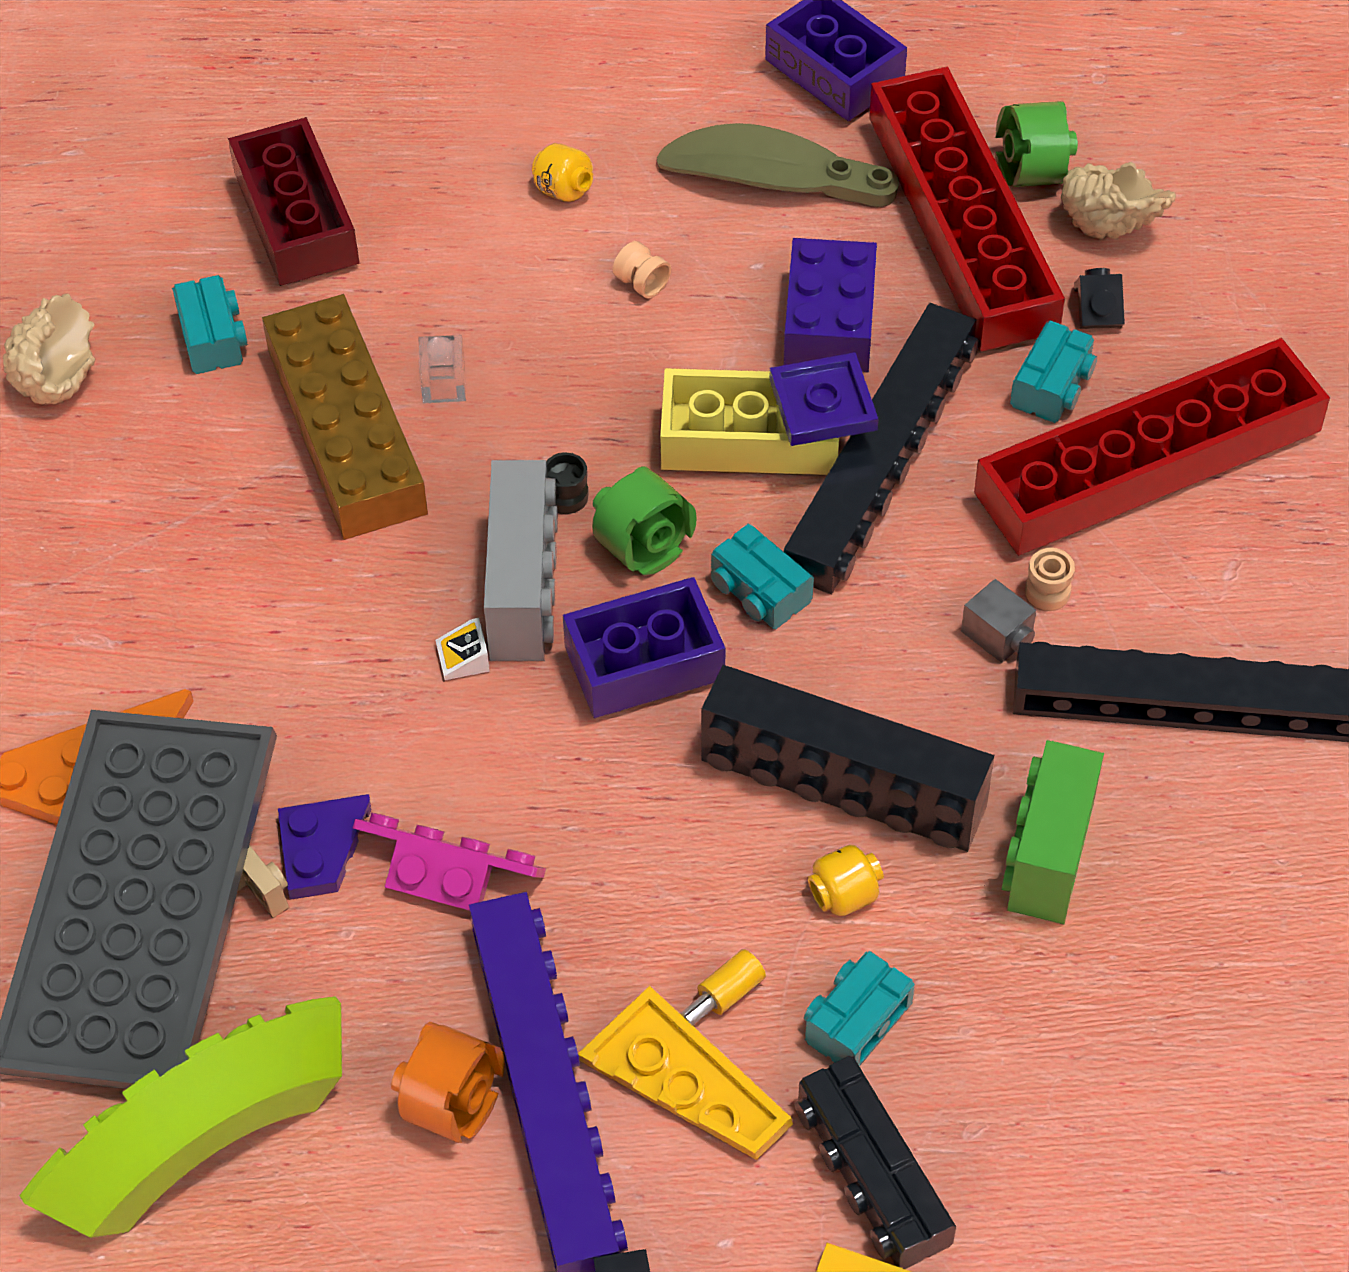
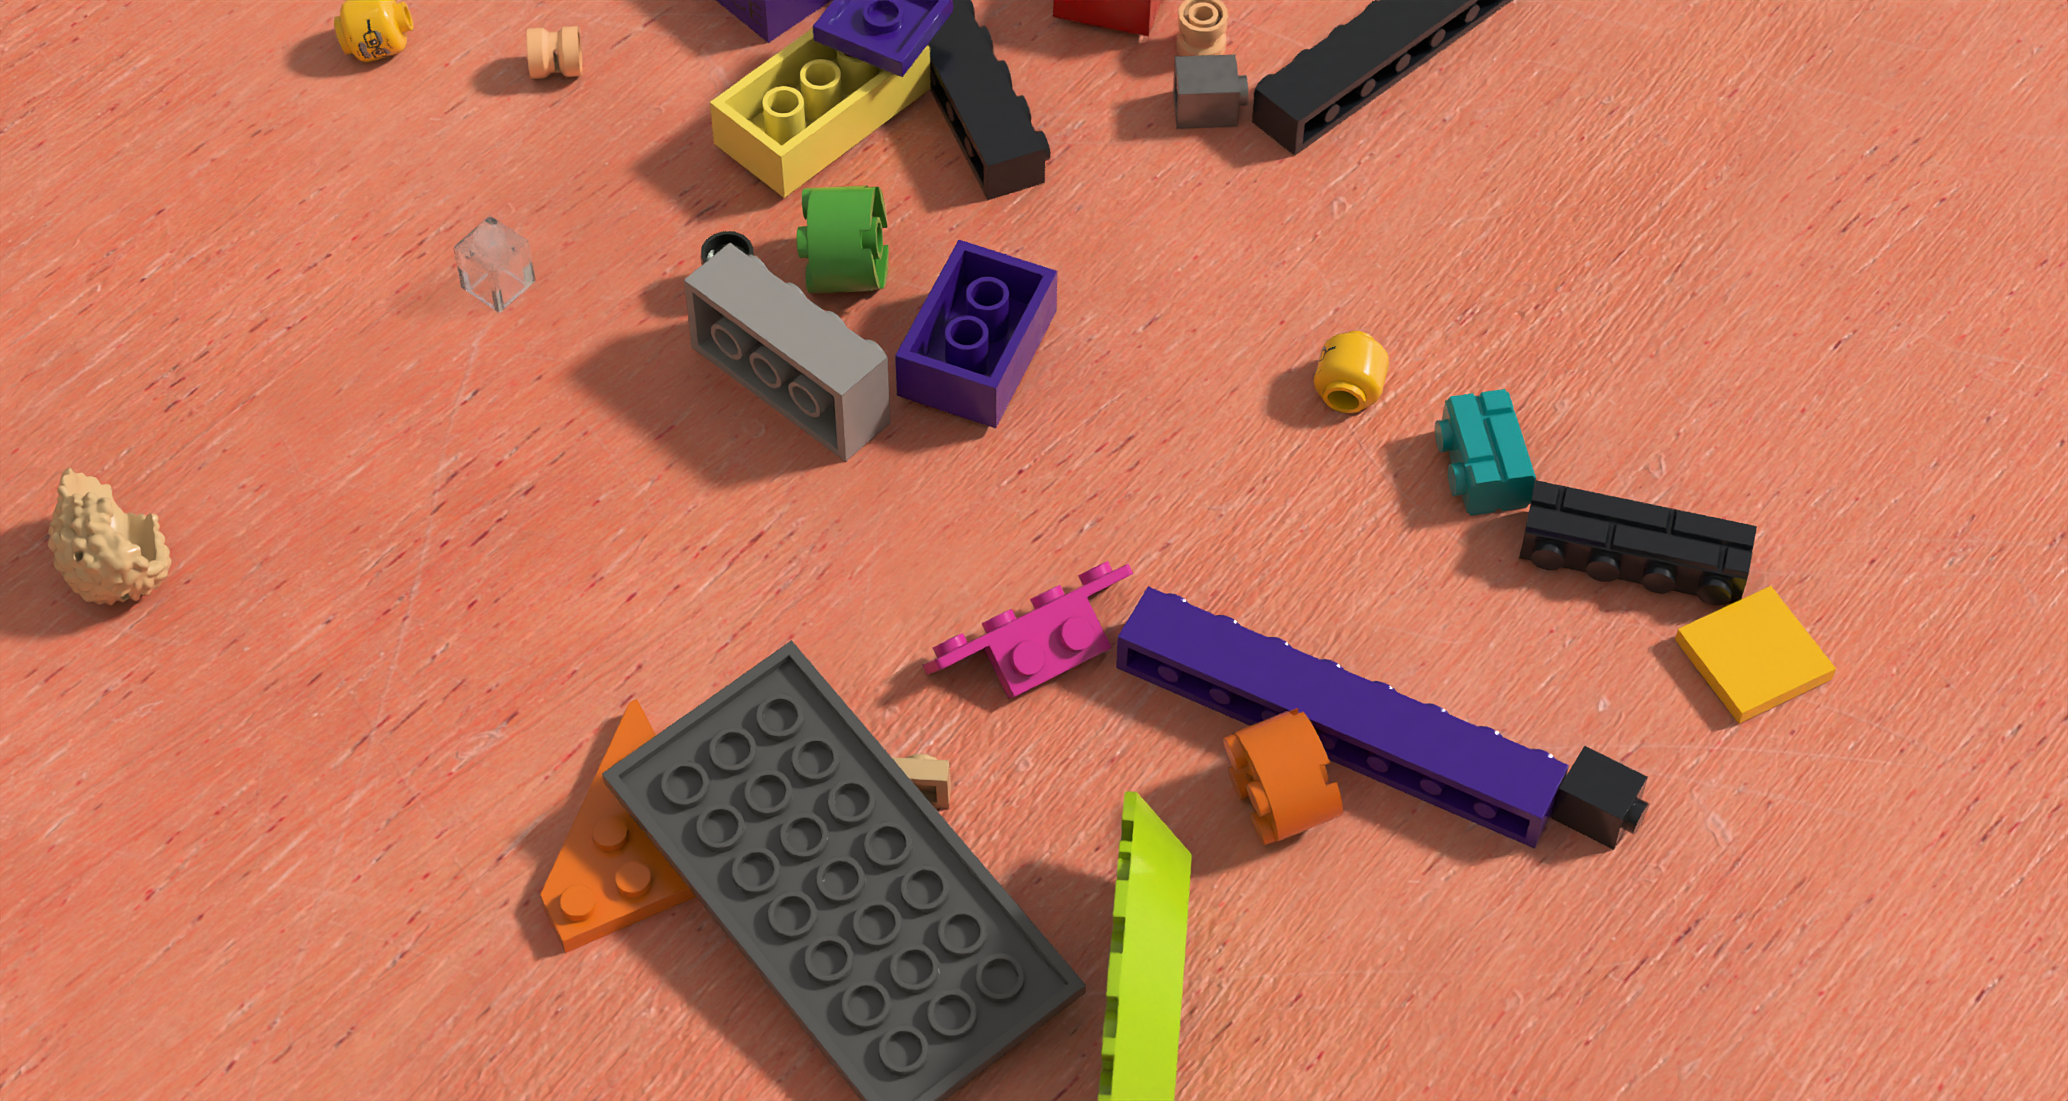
camera: 50 degrees left, 0 degrees up
(208, 324) = (217, 399): teal brick -> none
(293, 201) = (157, 233): dark red brick -> none
(319, 843) = (912, 711): dark purple wing -> none
(345, 417) = (458, 370): pearl gold brick -> none
(463, 651) = (822, 466): slope -> none
(679, 1069) = (1417, 613): yellow wing -> none
(726, 986) = (1369, 524): yellow piece -> none
(761, 577) = (986, 207): teal brick -> none
(845, 758) = (1244, 278): black brick -> none
(1051, 831) = (1461, 199): bright green brick -> none

